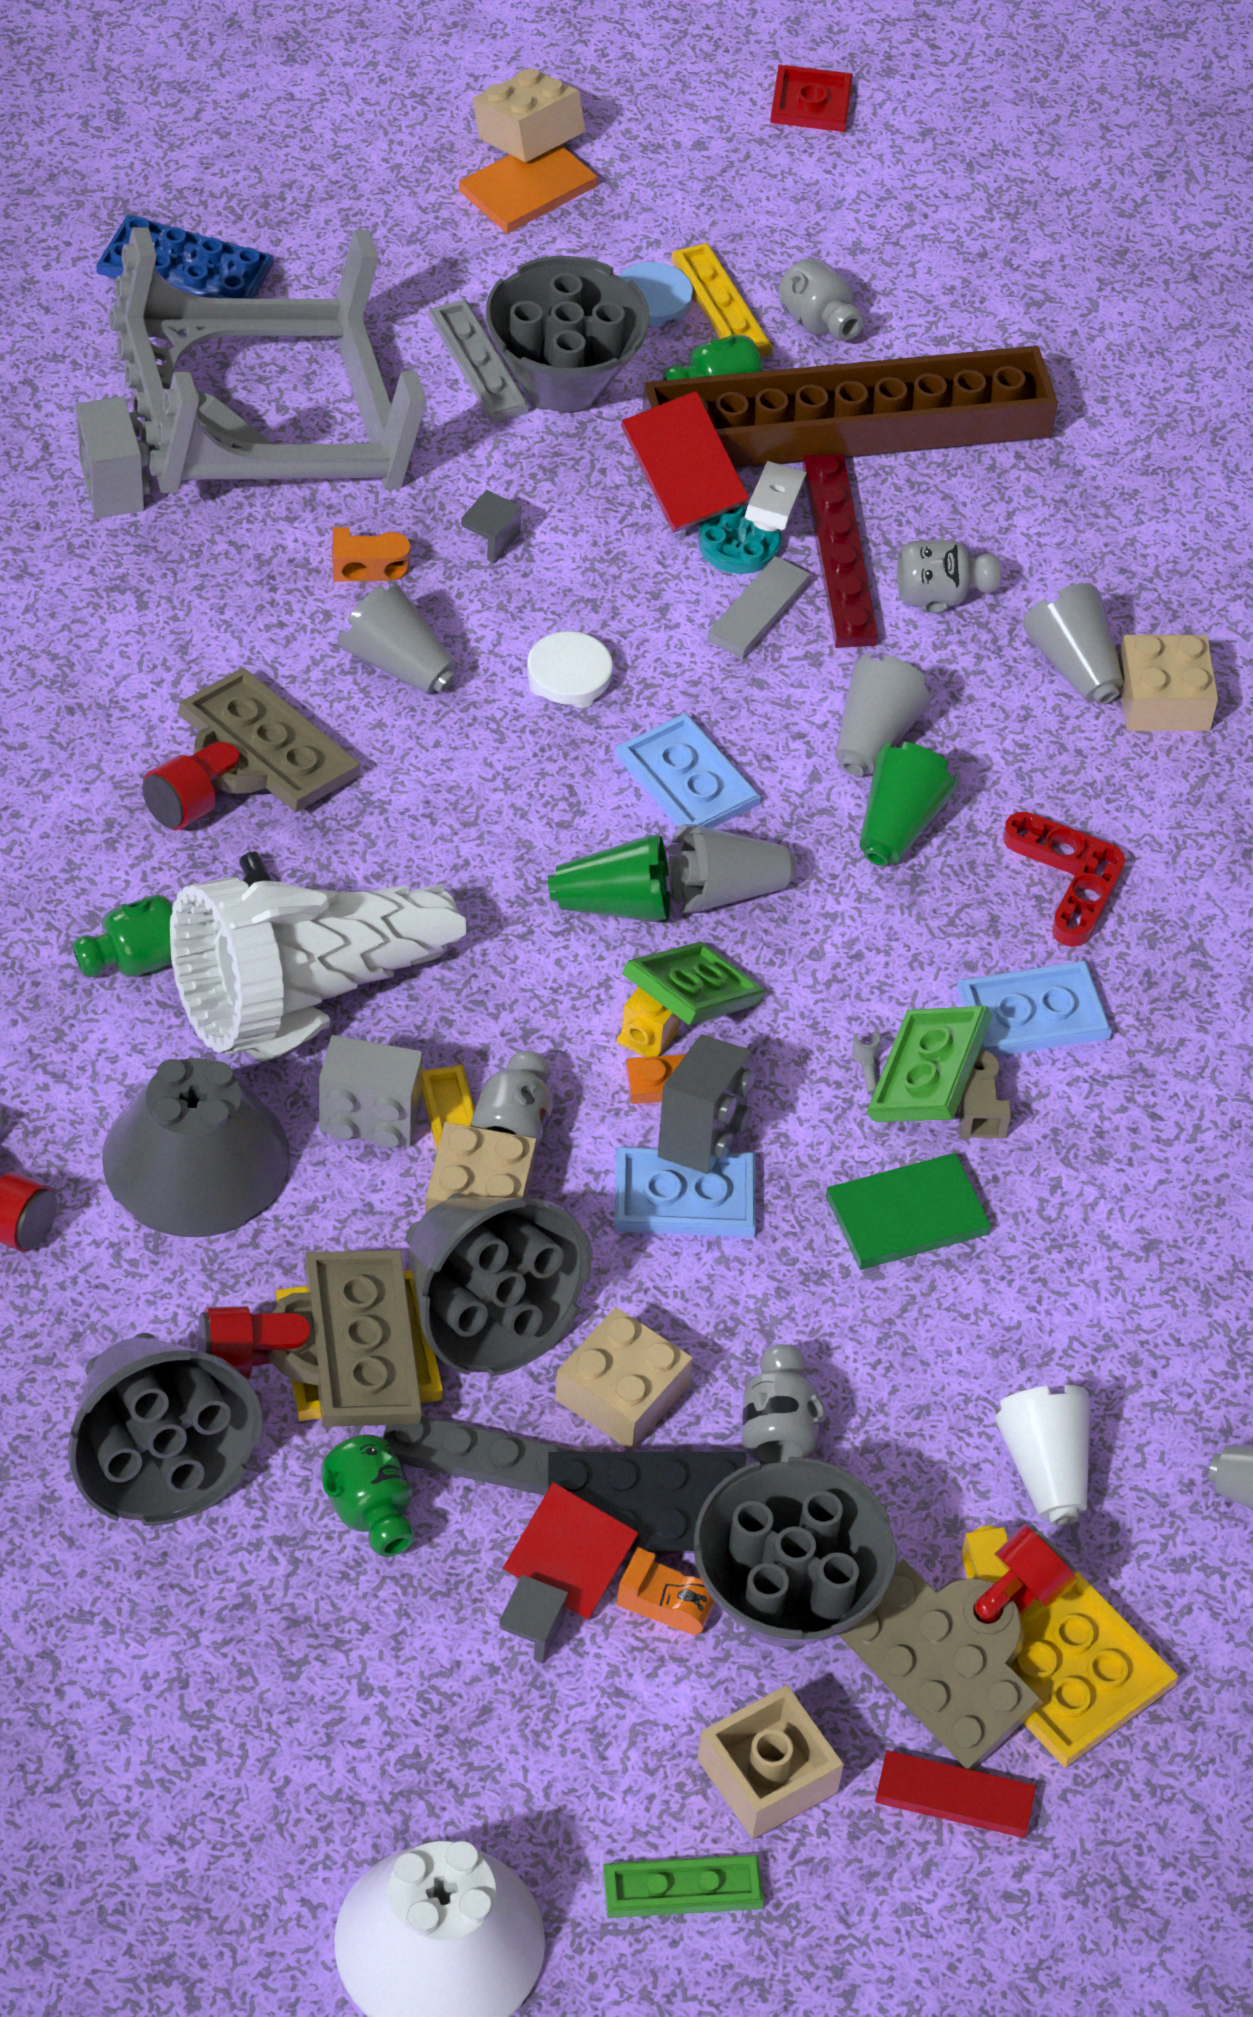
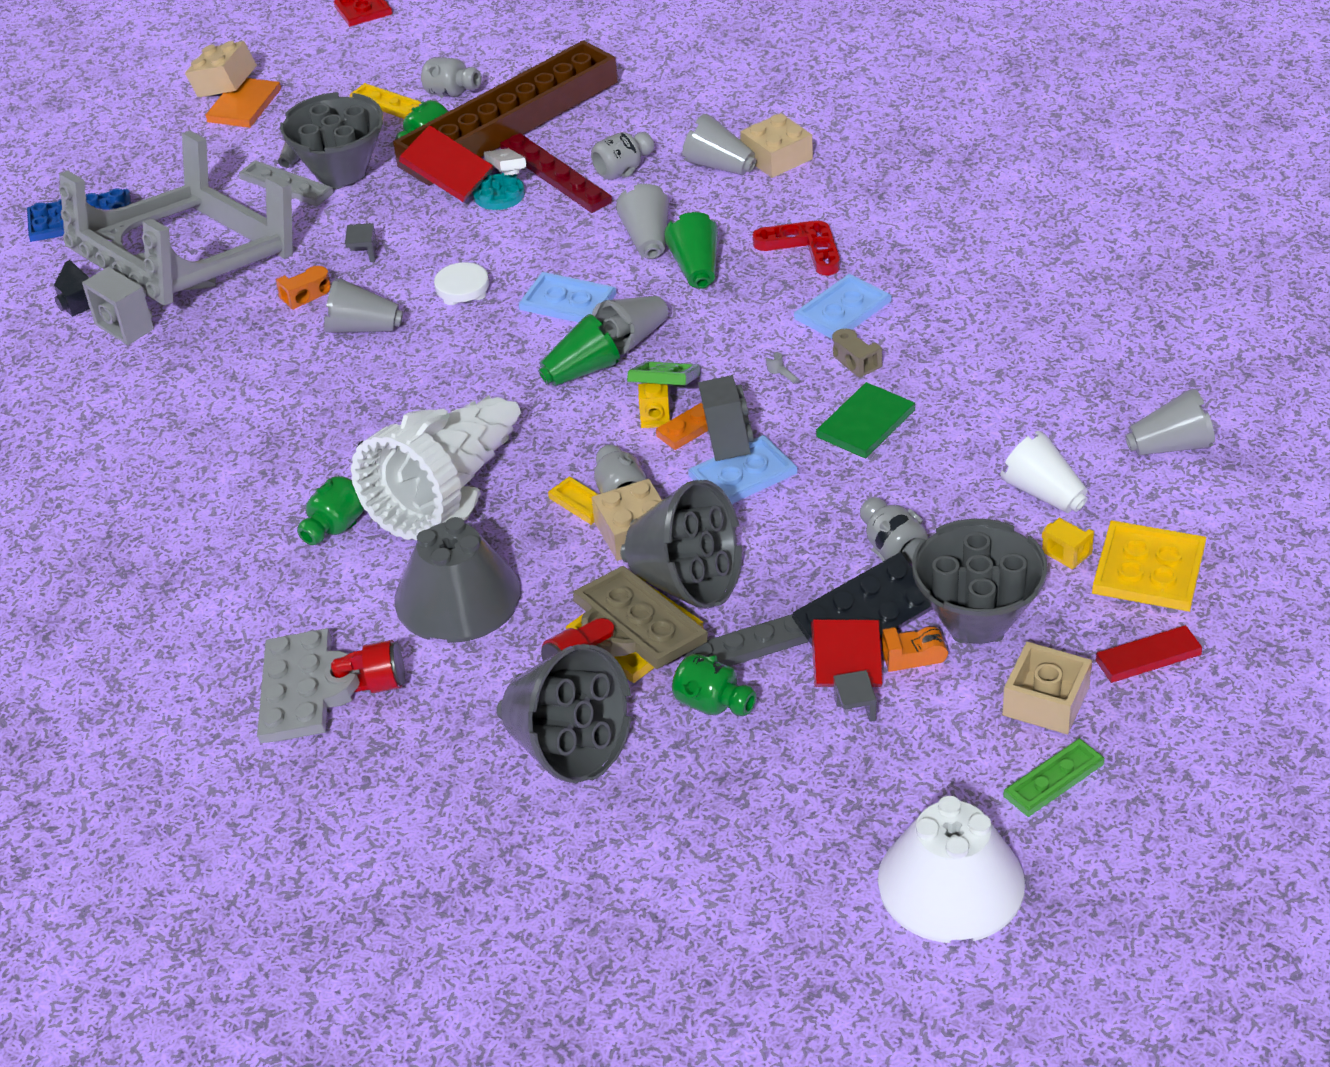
camera: 25 degrees left, 10 degrees down
(80, 383) = (71, 290): none -> black slope
(244, 745) = (313, 397): dark tan plate -> none
(370, 1091) = (535, 506): light grey brick -> none
(623, 1378) = (795, 563): tan brick -> none
(758, 607) = (536, 214): light grey tile -> none
(929, 1064) = (817, 350): bright green tile -> none
(954, 1646) = (1088, 582): dark tan plate -> none

